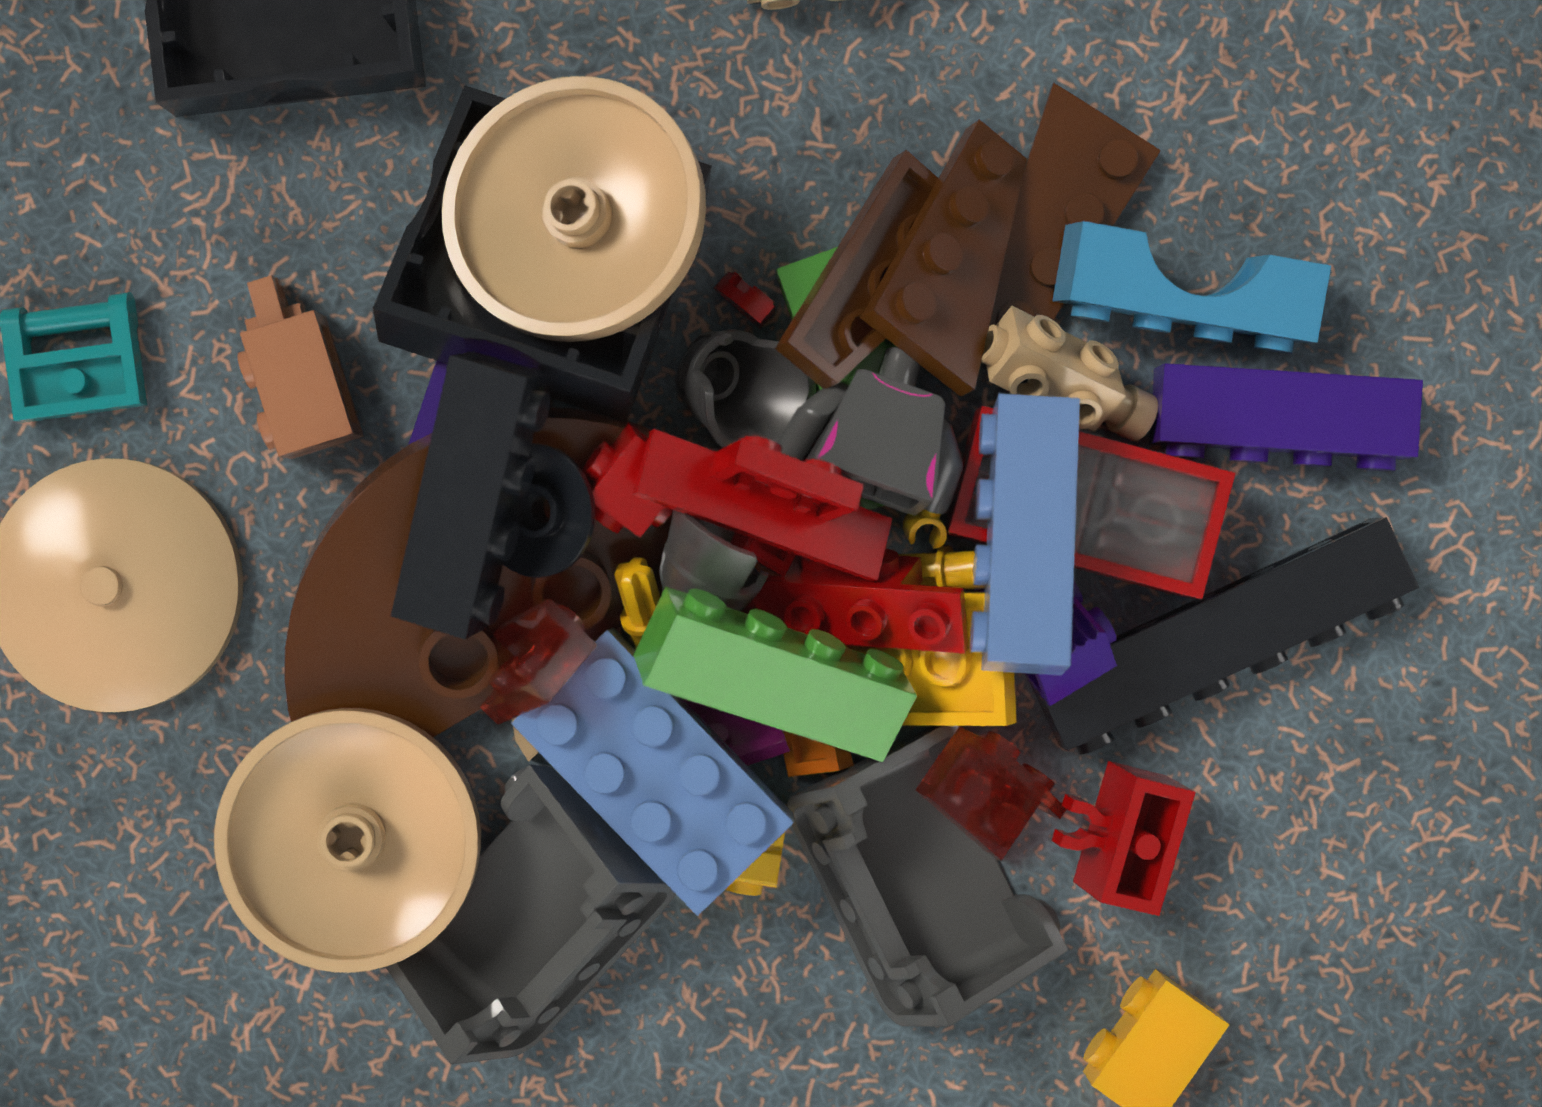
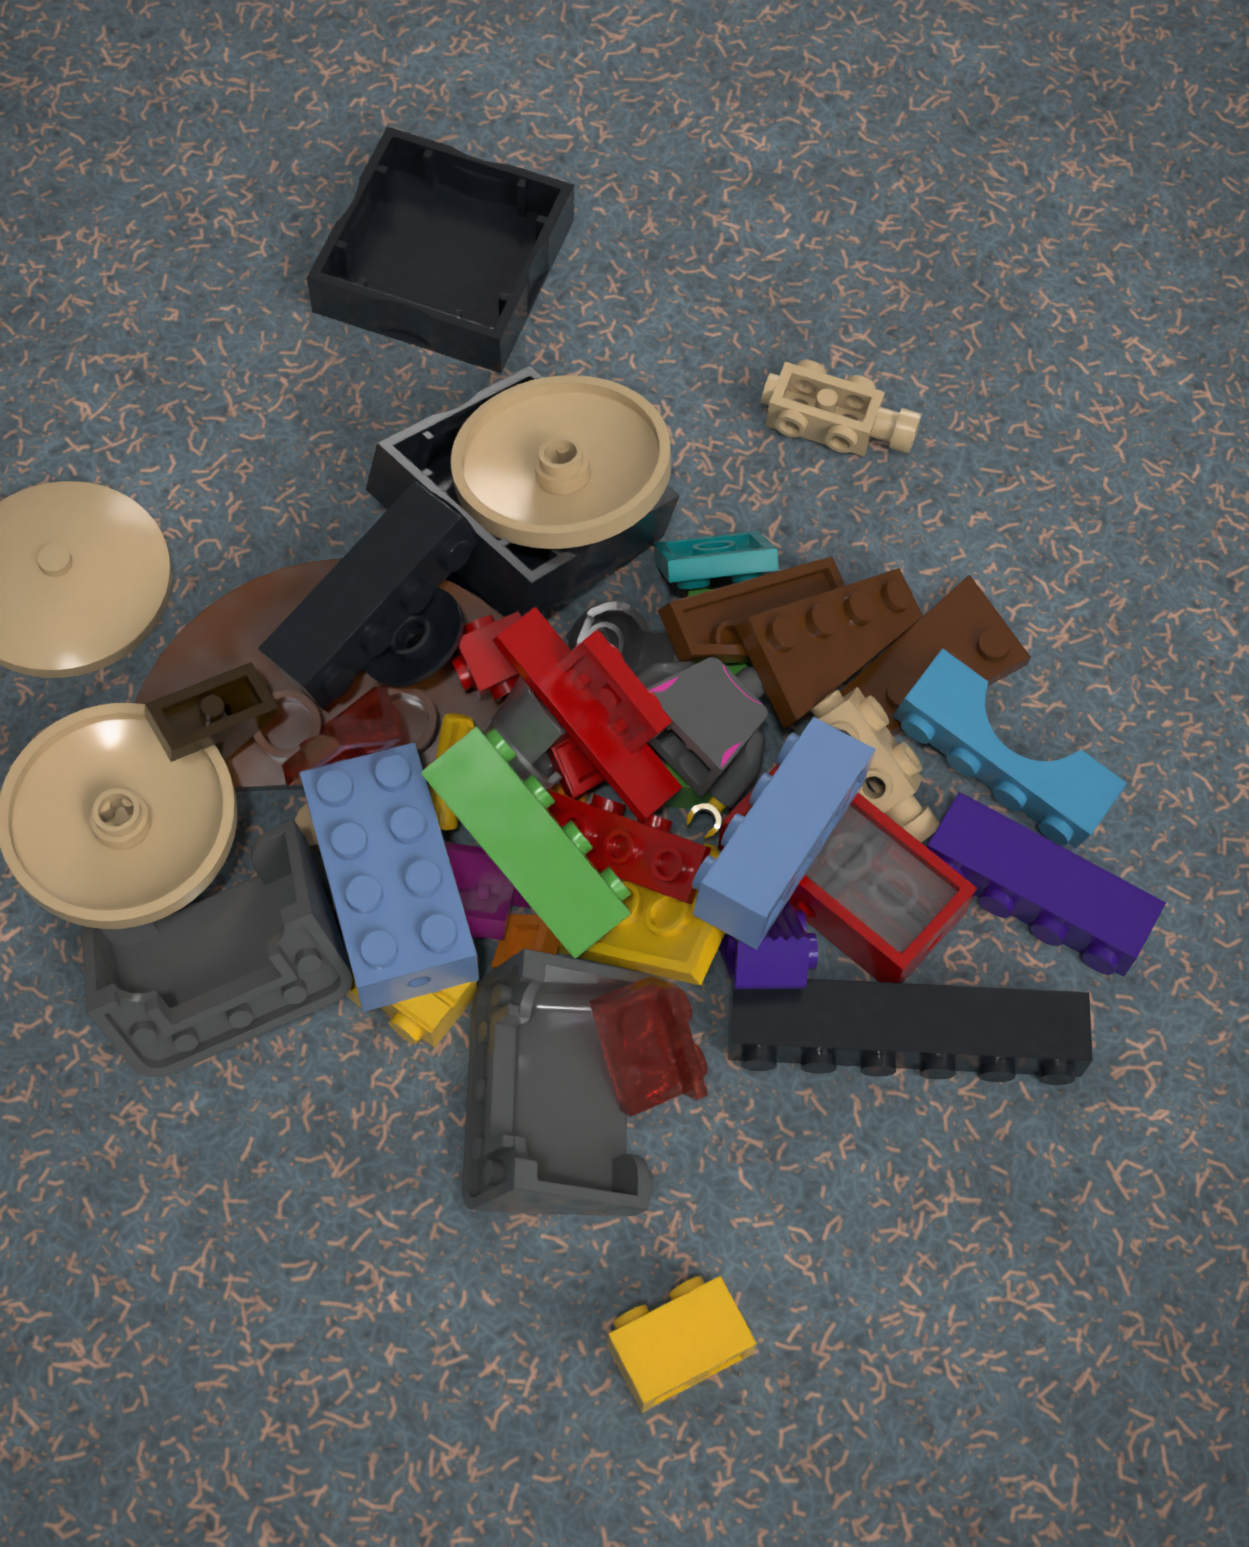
camera: 20 degrees right, 25 degrees down
(75, 378) = (132, 430): teal plate -> none
(296, 375) = (288, 501): nougat hinge -> none
(383, 703) = (212, 712): none -> dark brown slope
(747, 300) = (649, 602): red tile -> none
(784, 215) = (698, 559): none -> teal plate
(1129, 838) = (750, 1144): red brick -> none

